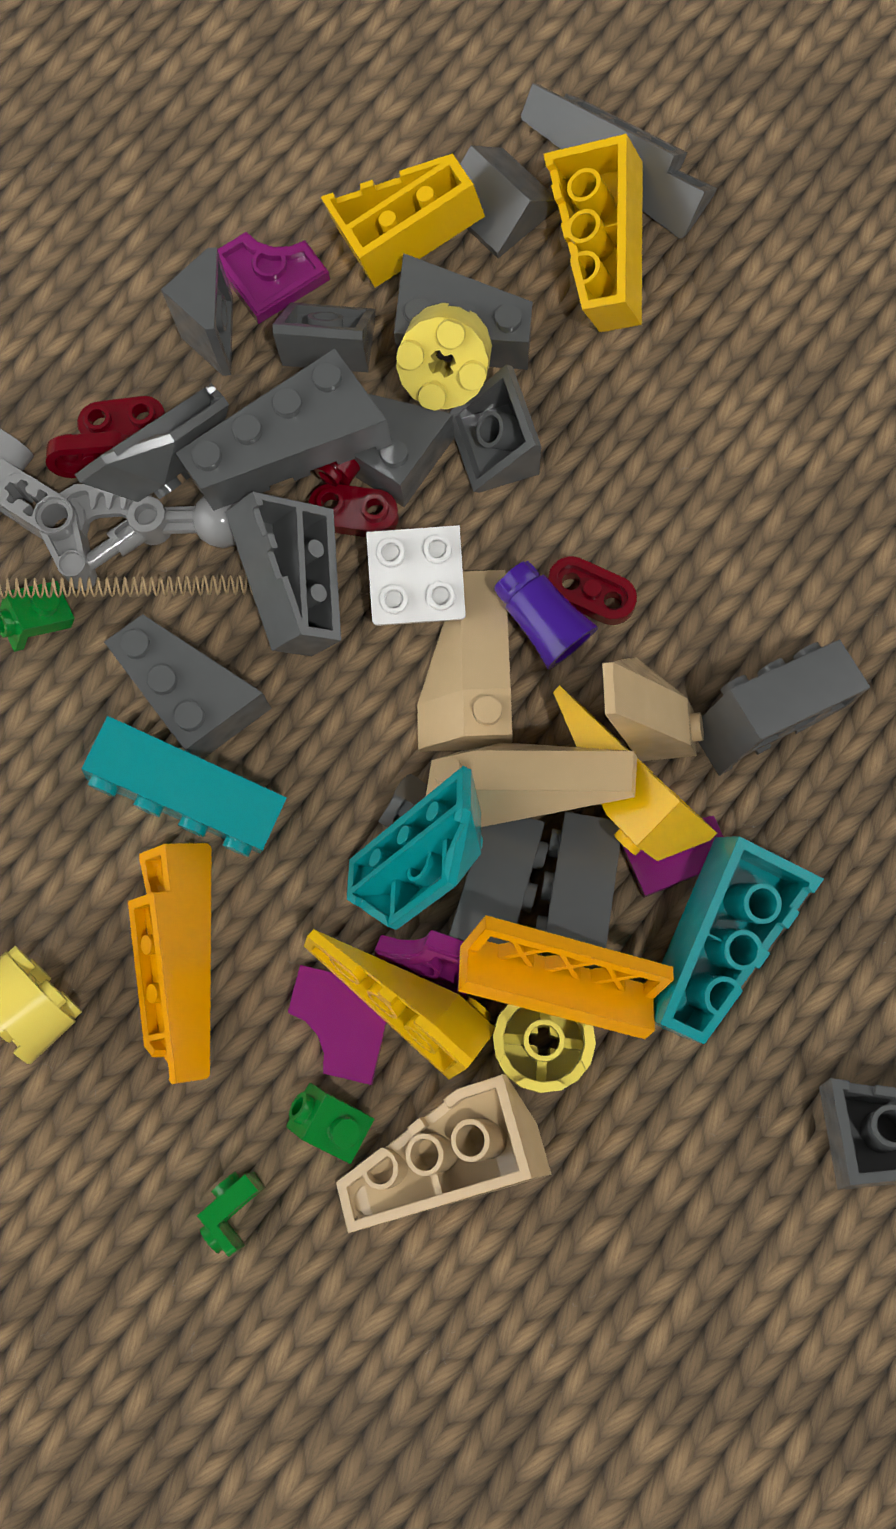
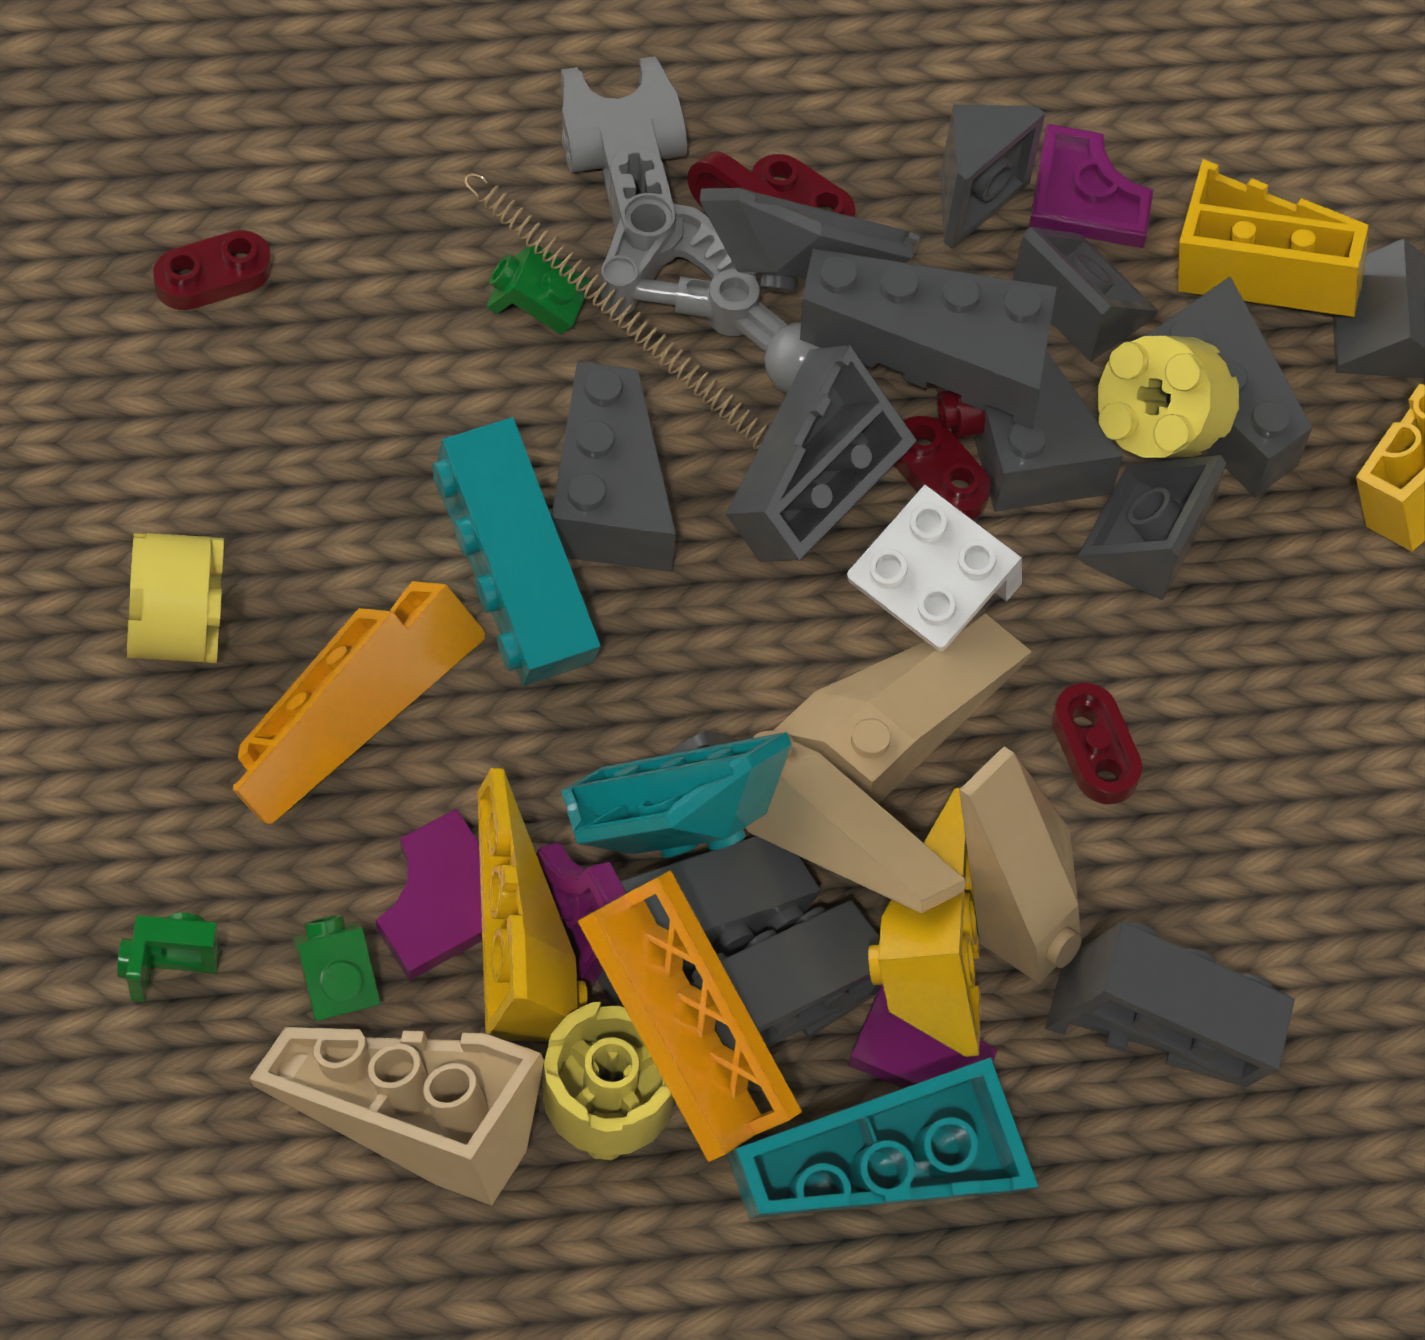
camera: 30 degrees right, 15 degrees down
(543, 614) = (1024, 709): dark purple plant -> none

